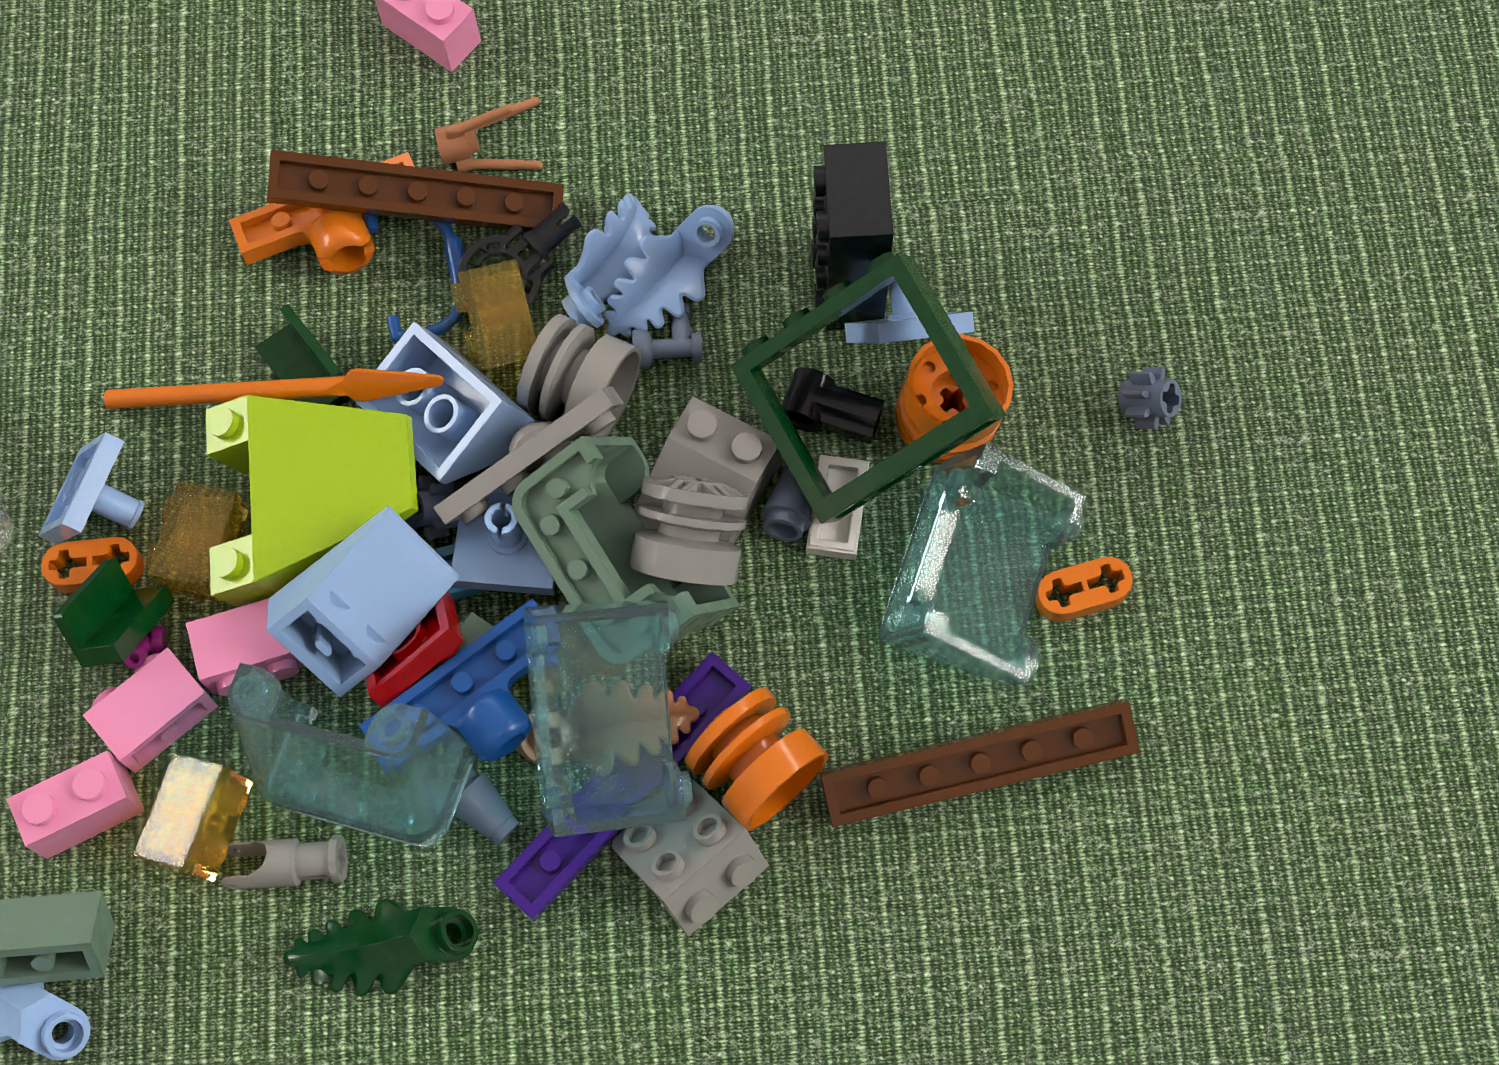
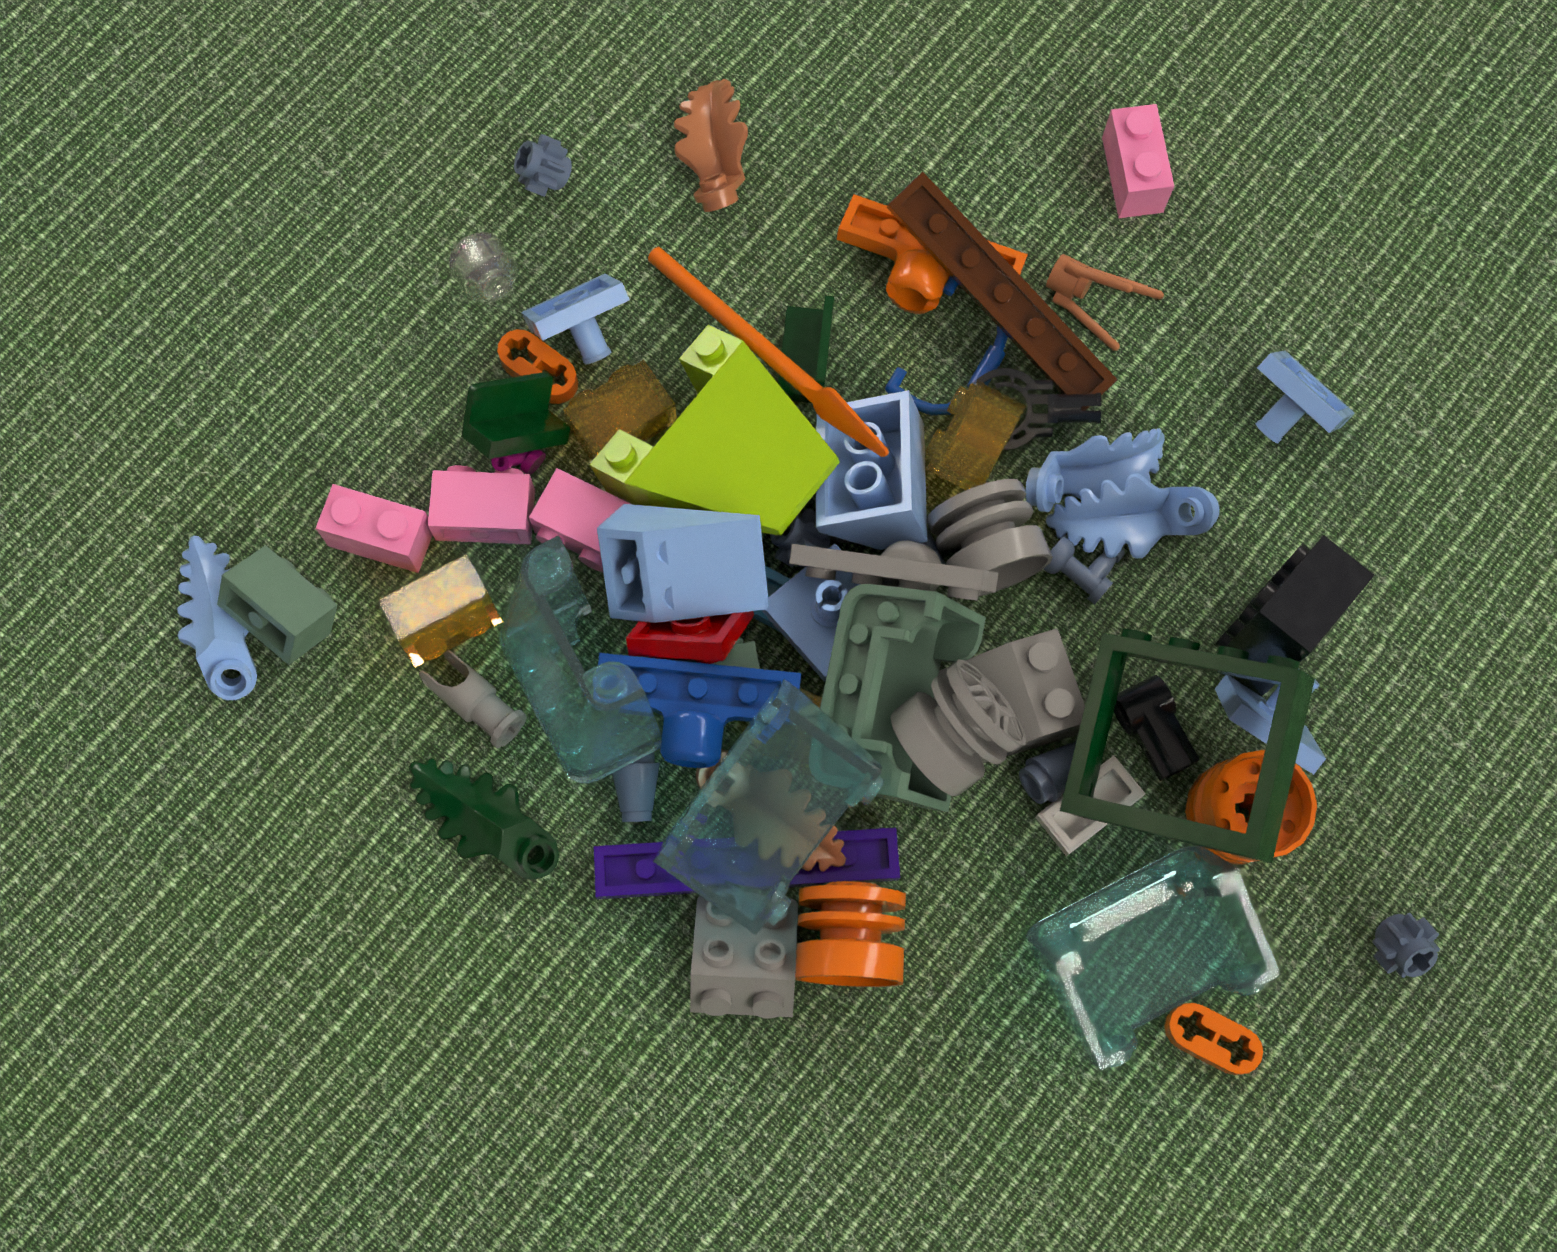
camera: 40 degrees right, 5 degrees up
(76, 274) = (713, 143): none -> nougat plant
(709, 87) = (1301, 396): none -> light blue tile
(979, 762) = (1013, 1092): reddish brown plate -> none

